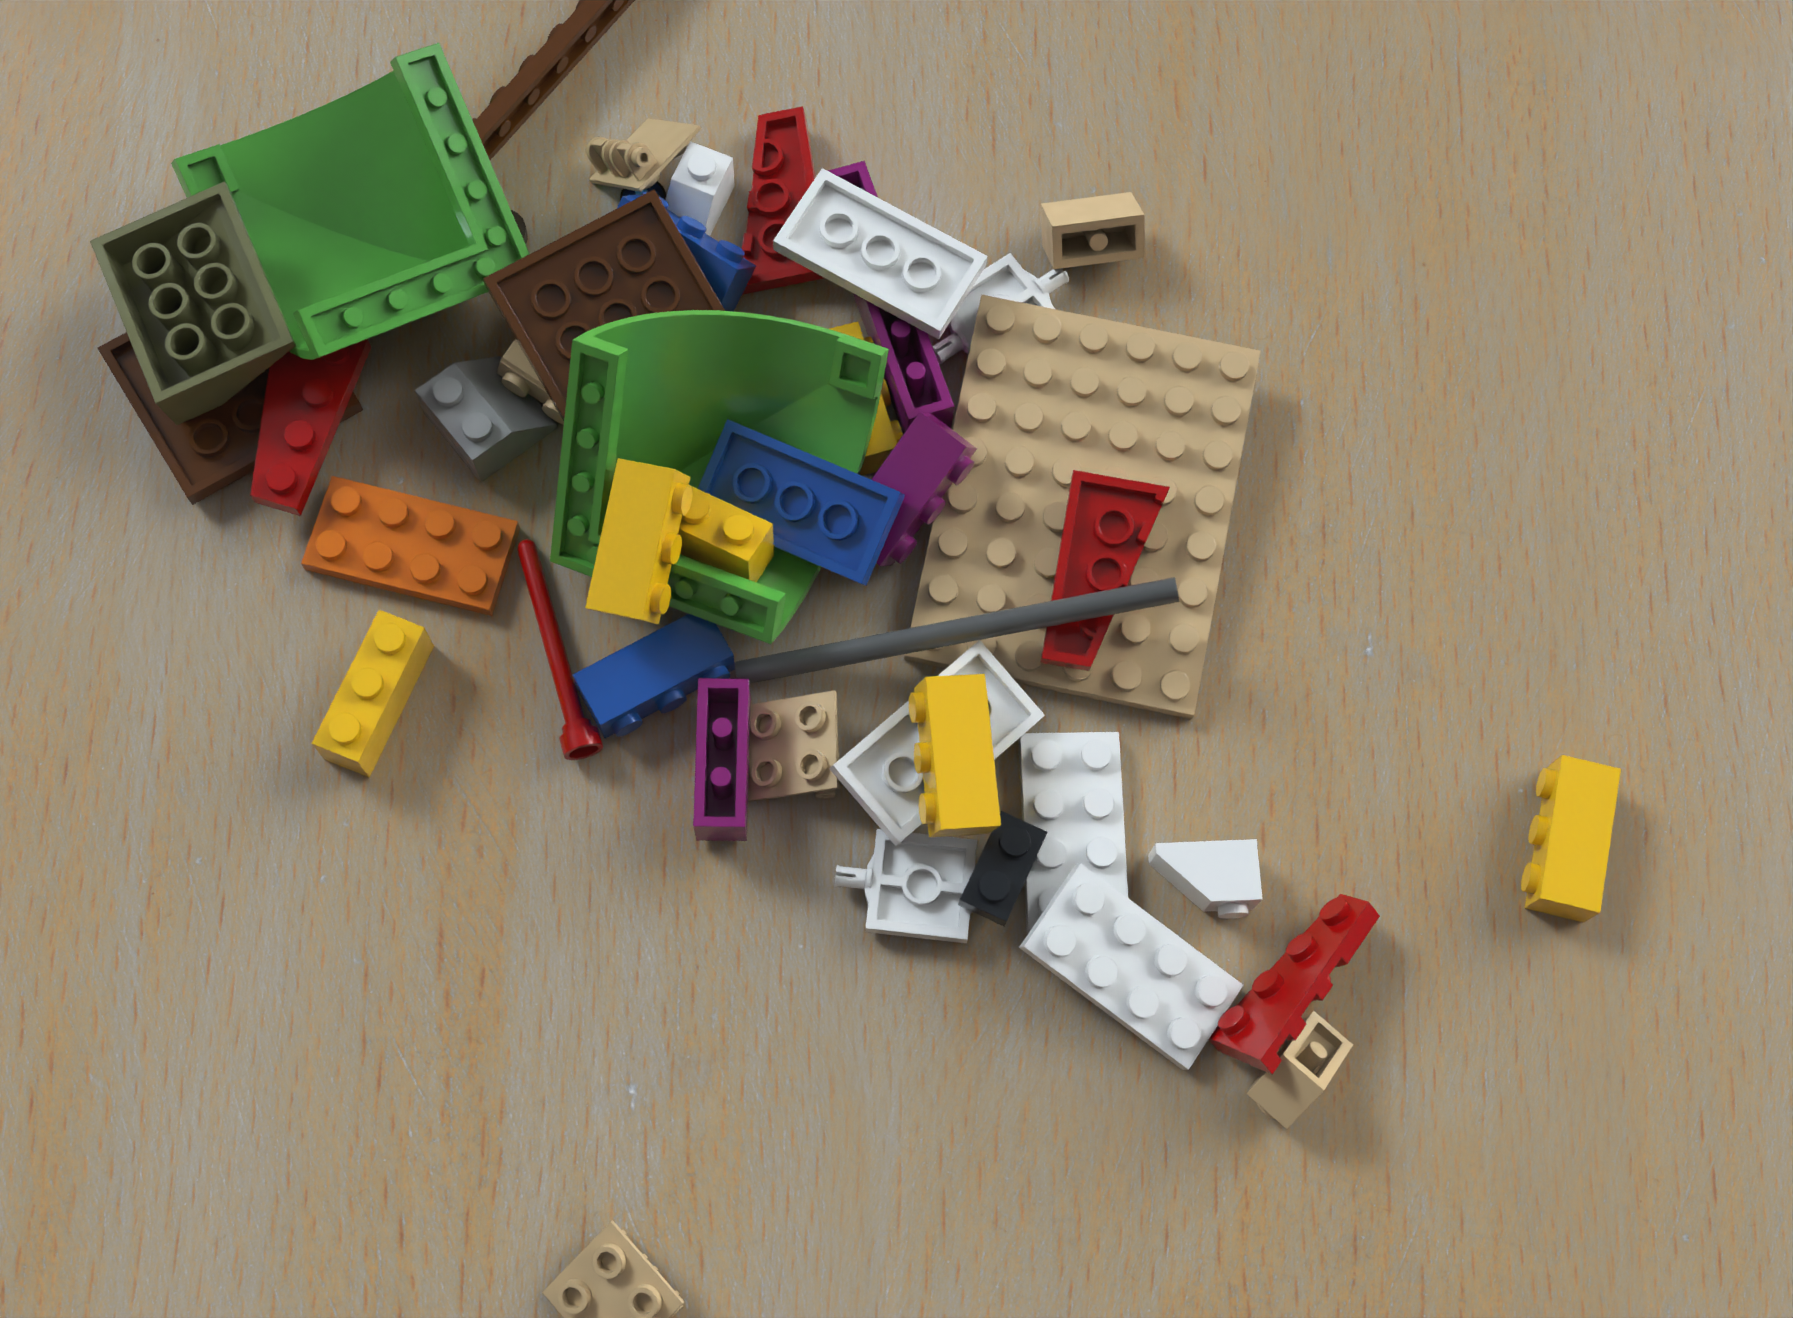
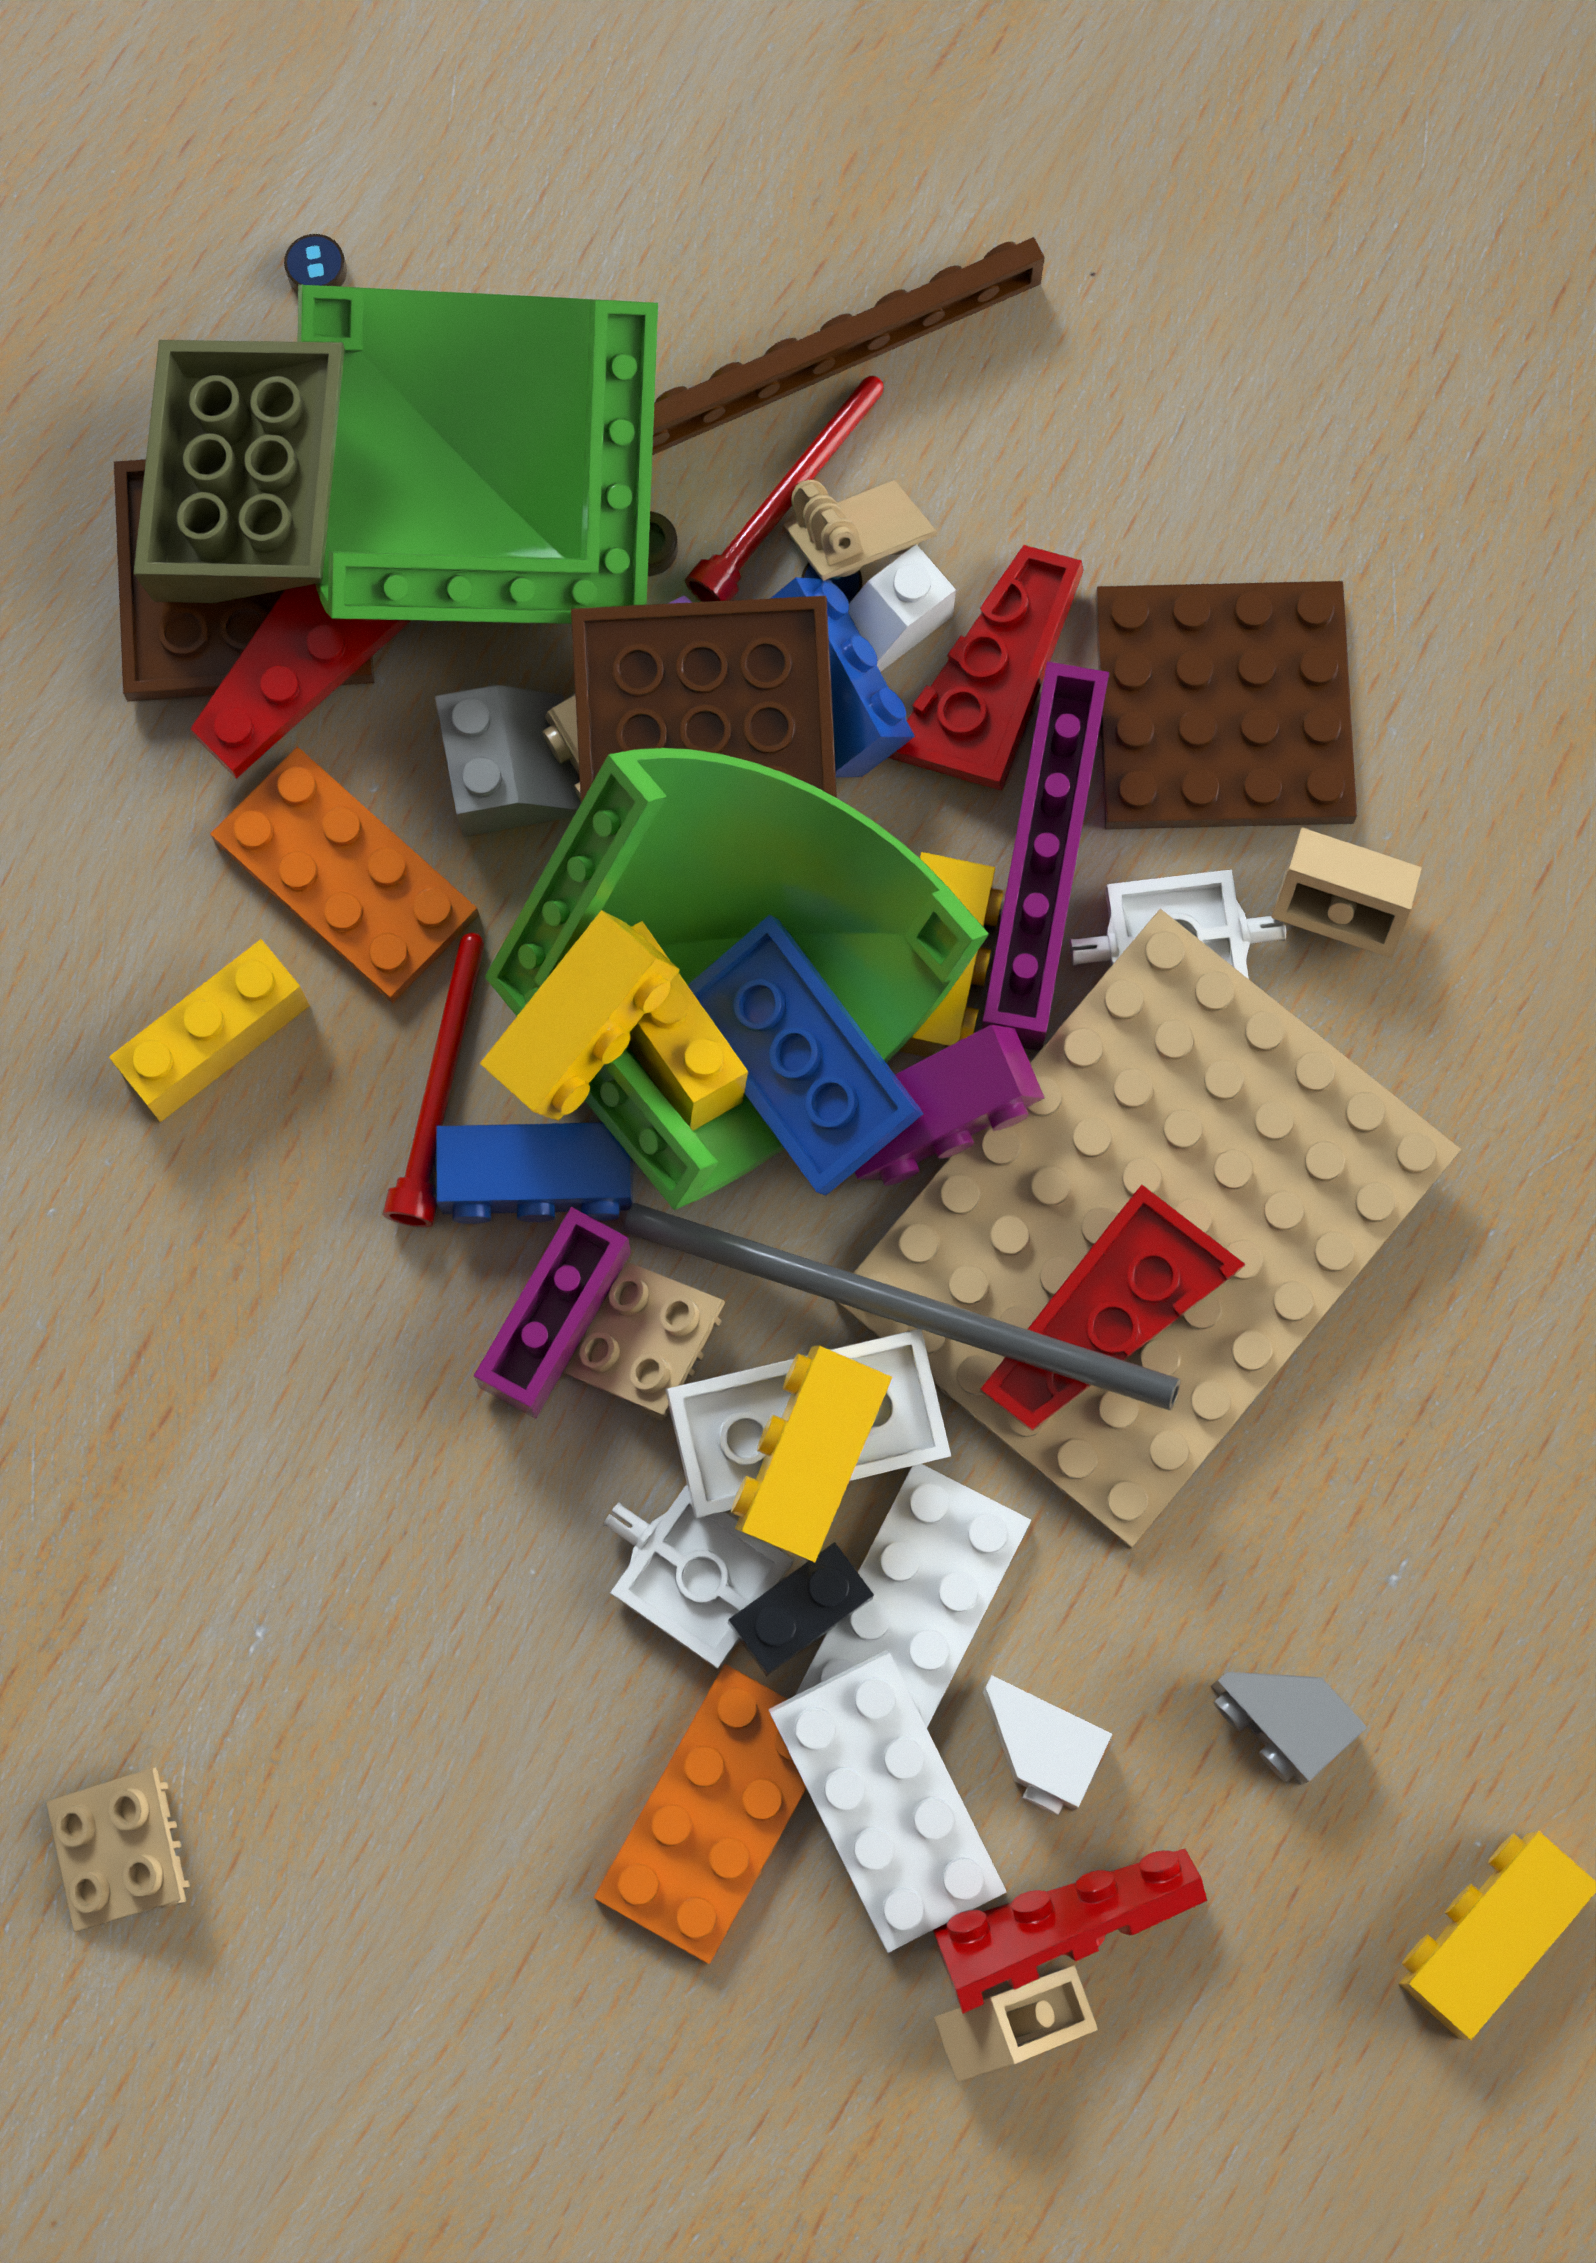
camera: 35 degrees right, 5 degrees up
(164, 152) = (315, 261): none -> dark blue tile
(567, 220) = (718, 576): none -> red piece
(880, 253) = (1058, 802): white plate -> none
(949, 148) = (1225, 705): none -> reddish brown plate
(1017, 1048) = (708, 1821): none -> orange plate
(1362, 770) = (1292, 1716): none -> light grey slope

